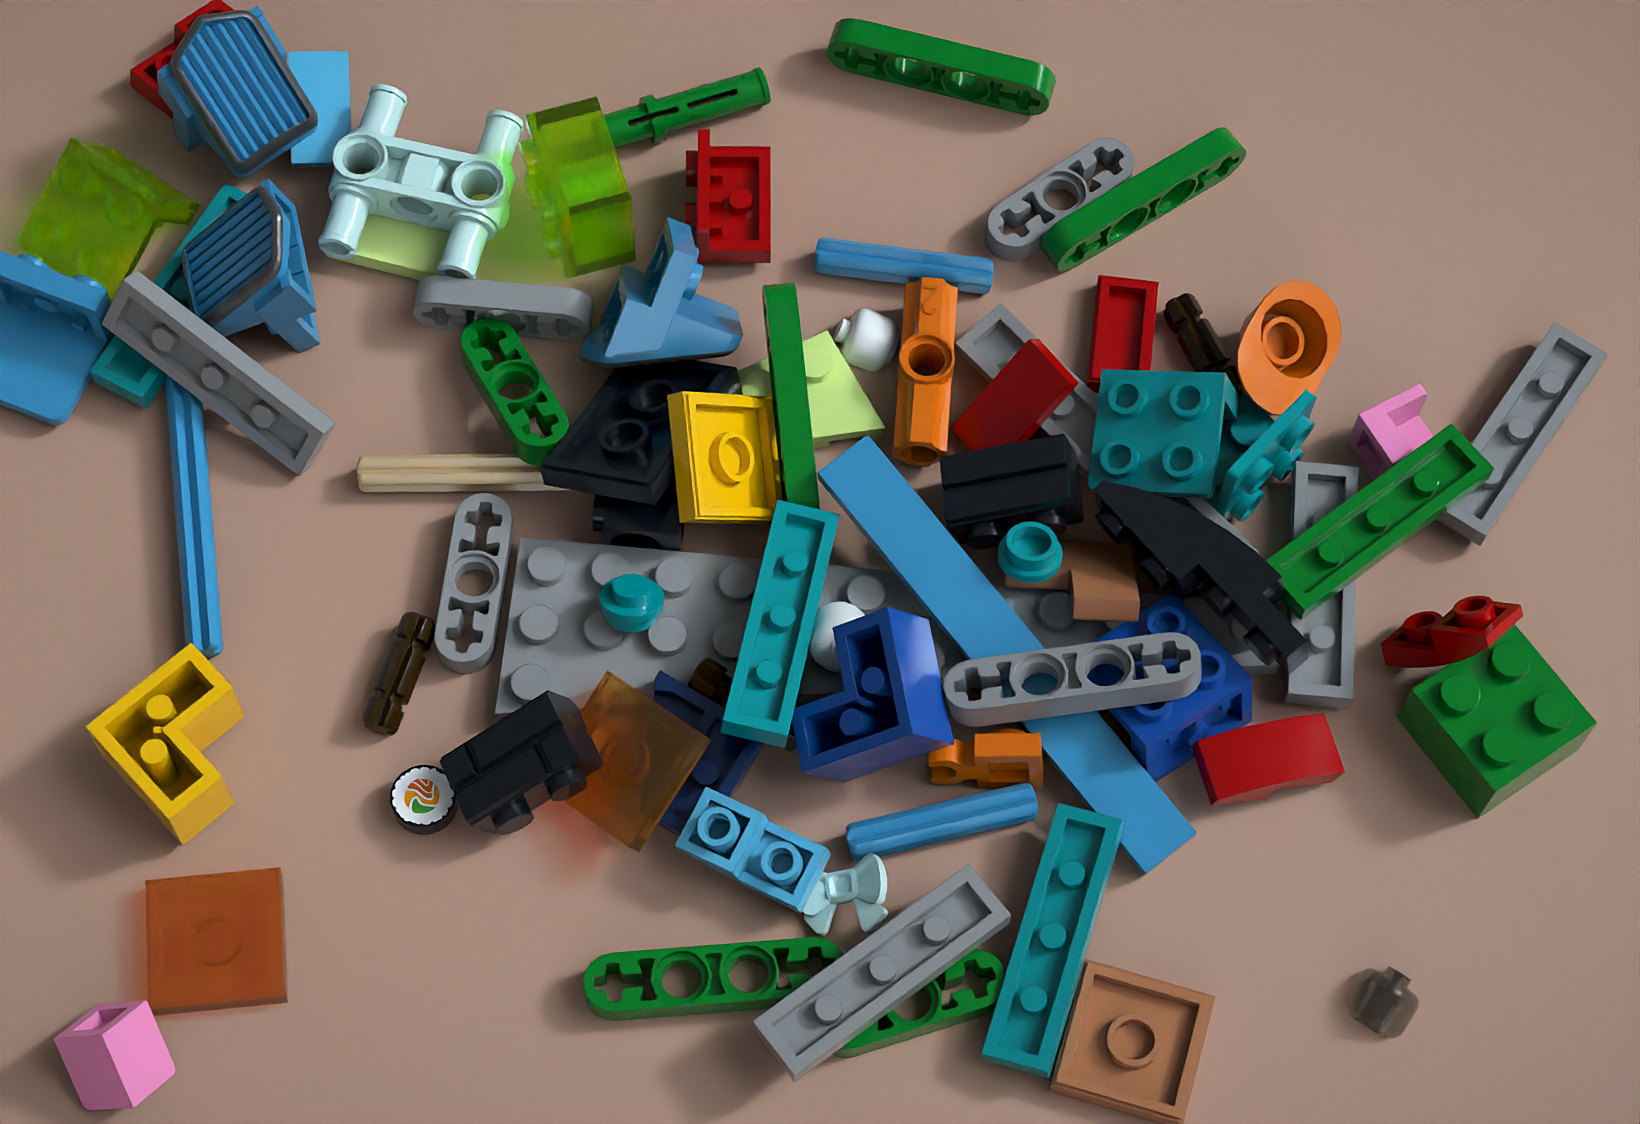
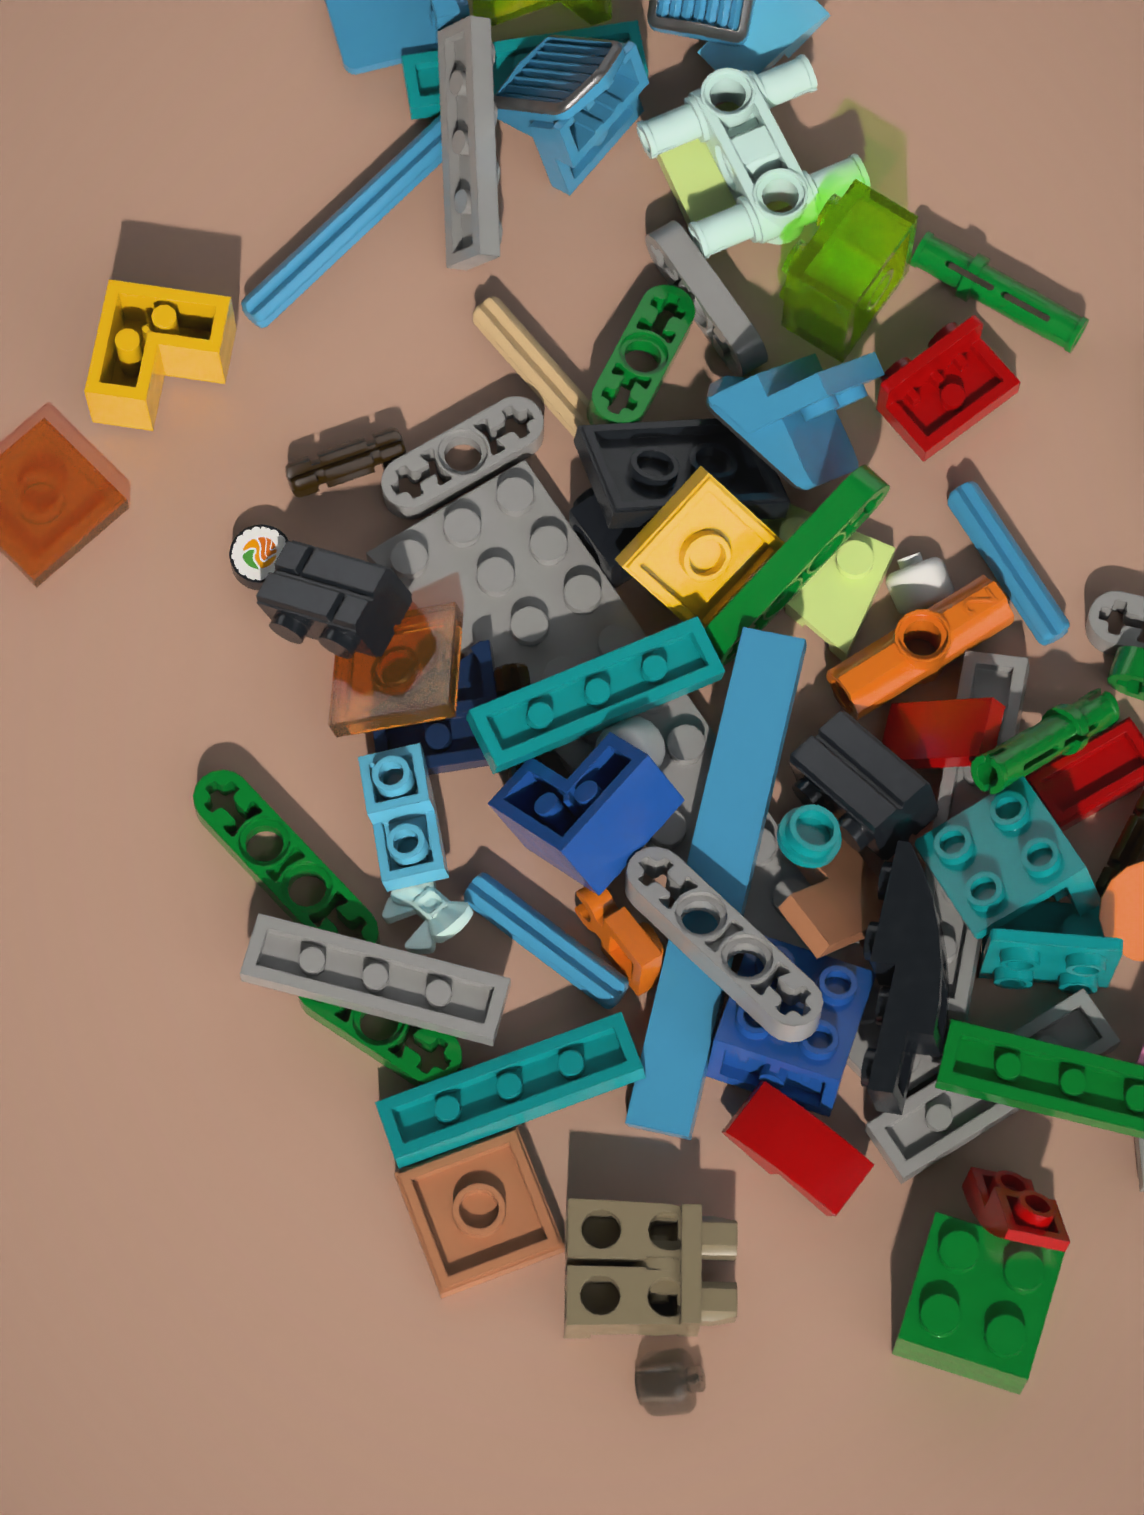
camera: 55 degrees right, 5 degrees up
(631, 602) = (527, 577): teal plate -> none
(1082, 327) = (1060, 732): none -> green pin
(1298, 928) = (642, 1269): none -> dark tan hips

